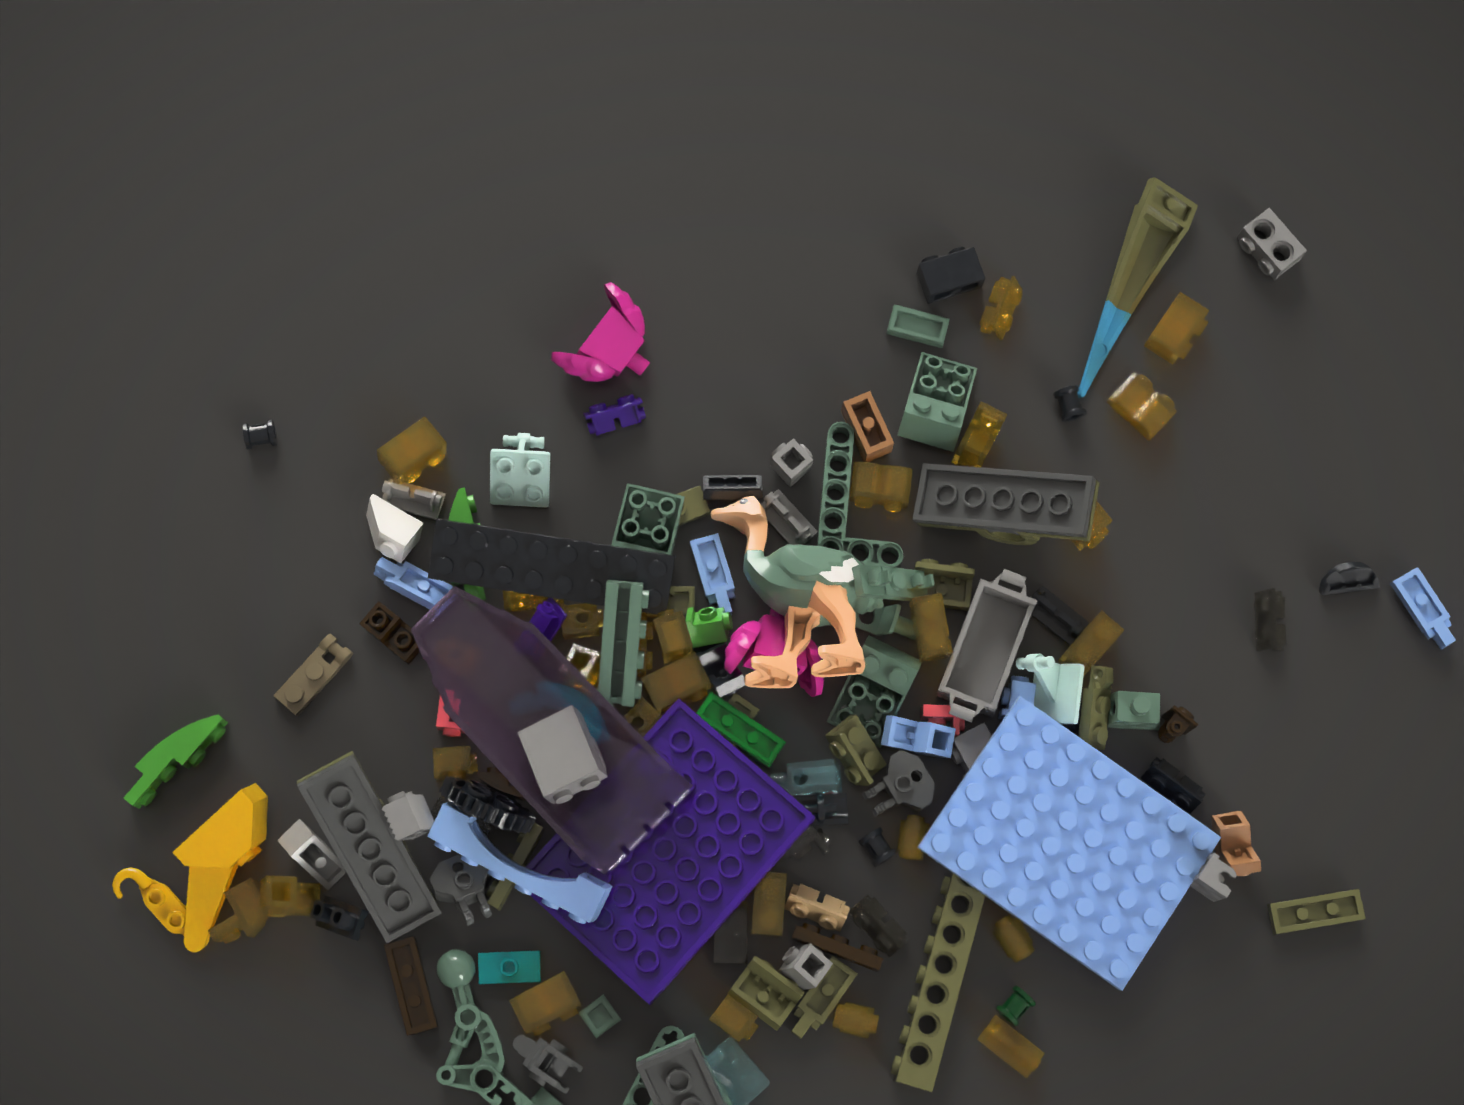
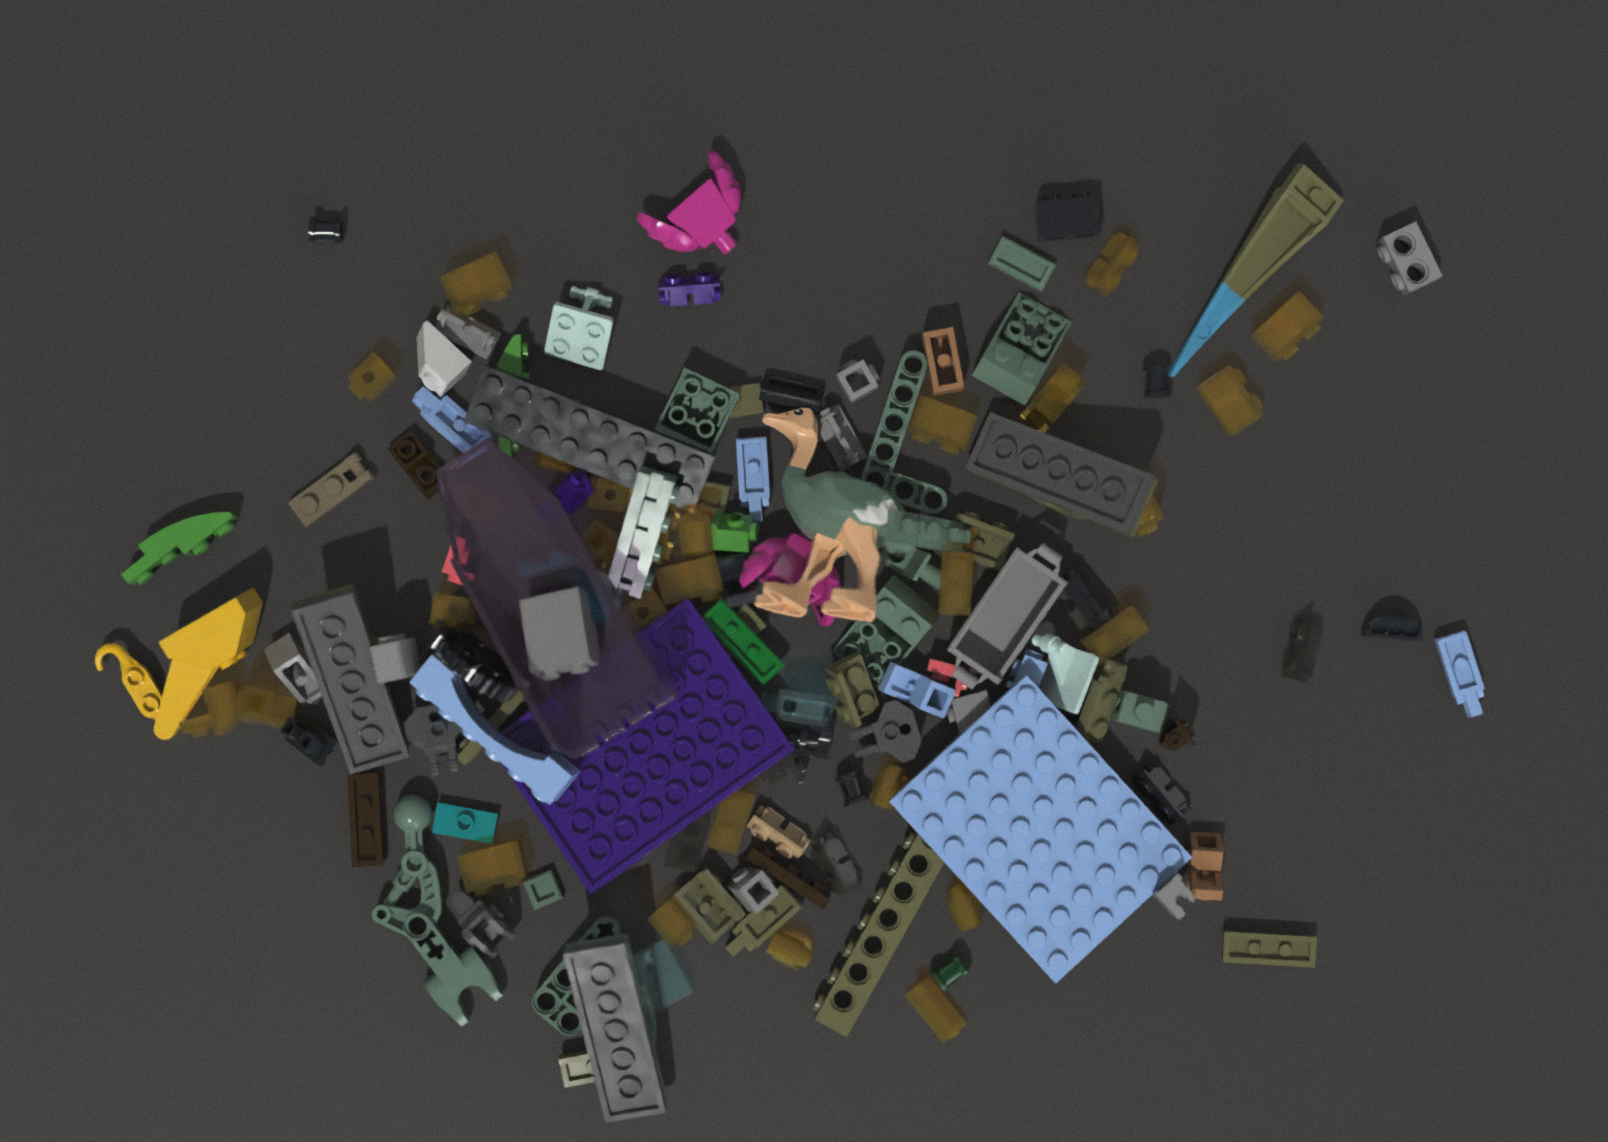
camera: 10 degrees right, 10 degrees up
(342, 559) = (382, 378): none -> clear yellow brick

